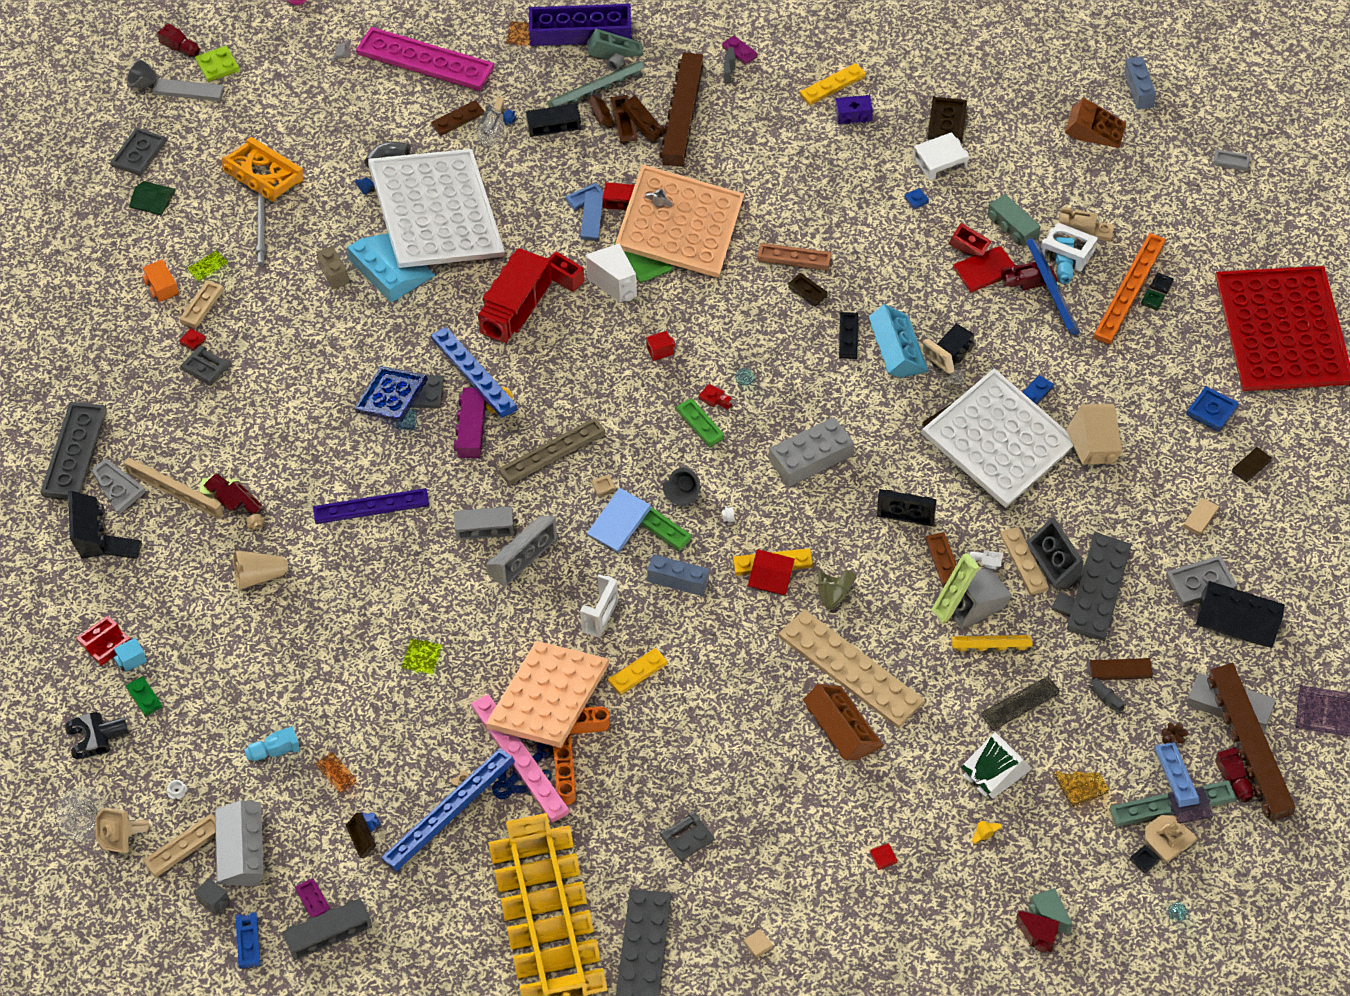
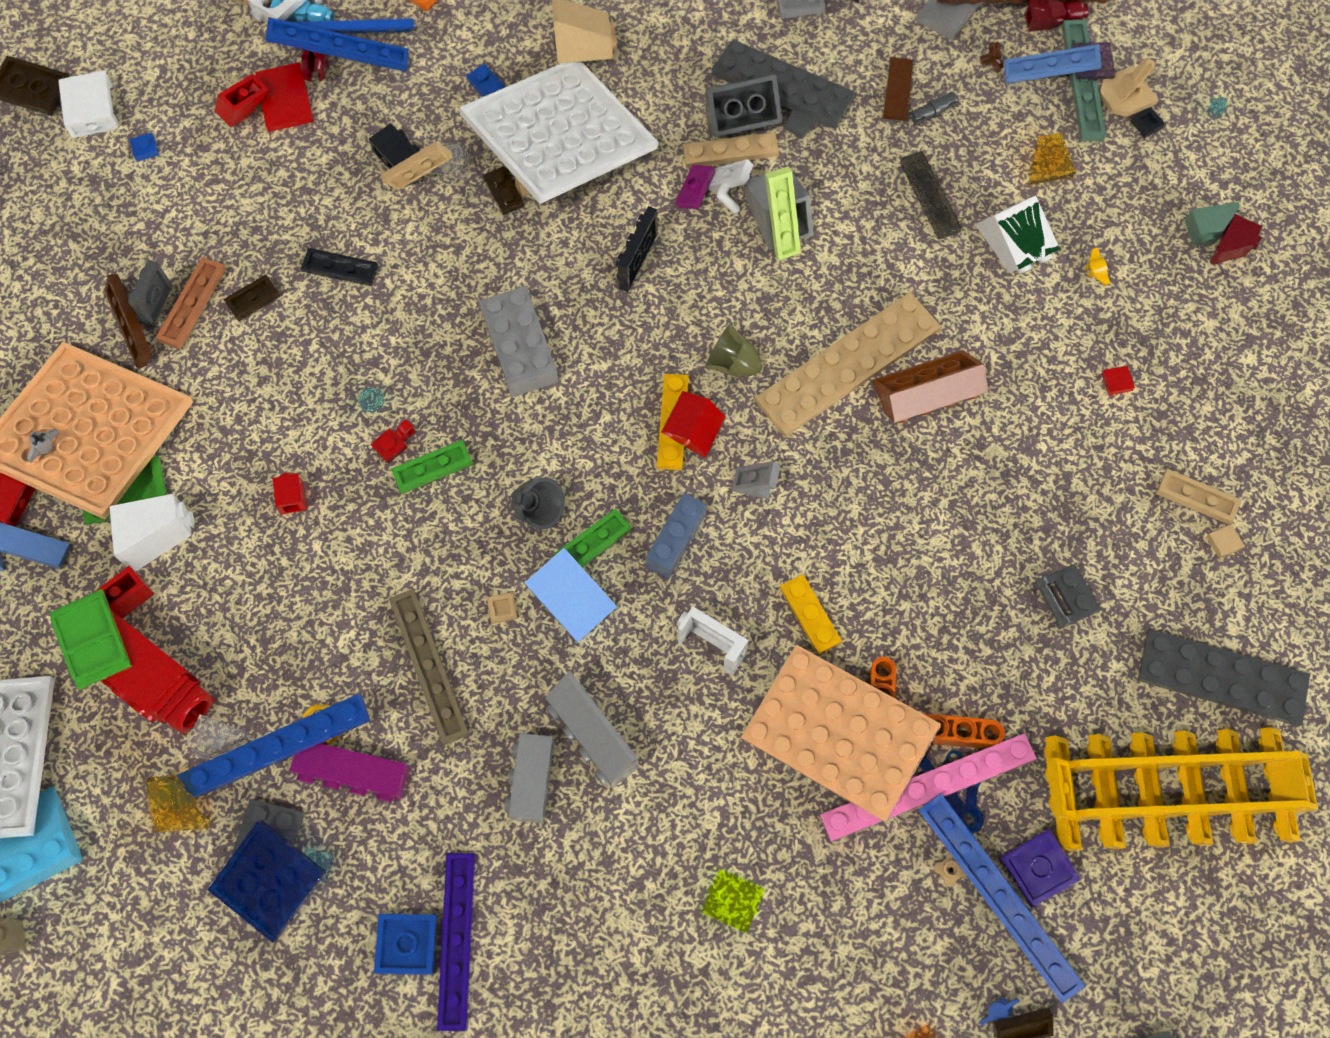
camera: 80 degrees left, 15 degrees up
(363, 478) = (405, 944): none -> blue plate
(430, 335) = (173, 806): none -> clear yellow wing
(473, 834) = (1041, 868): none -> dark purple plate
(479, 345) = (215, 738): none -> clear slope
(525, 256) = (89, 639): none -> bright green piece
(728, 515) = (590, 458): white plate -> none
(734, 621) = (756, 479): none -> light grey slope
(764, 228) = (127, 321): none -> reddish brown plate
(790, 229) = (150, 293): none -> dark grey plate
(791, 919) = (1198, 496): none -> tan plate
(897, 342) = (372, 213): medium azure slope -> none
(941, 556) = (713, 231): dark orange plate -> none
(980, 541) = (695, 186): none -> magenta plate
(999, 642) = (841, 205): yellow plate -> none
(1013, 220) = (221, 48): sand green brick -> none
(1032, 285) = (336, 44): none -> blue tile

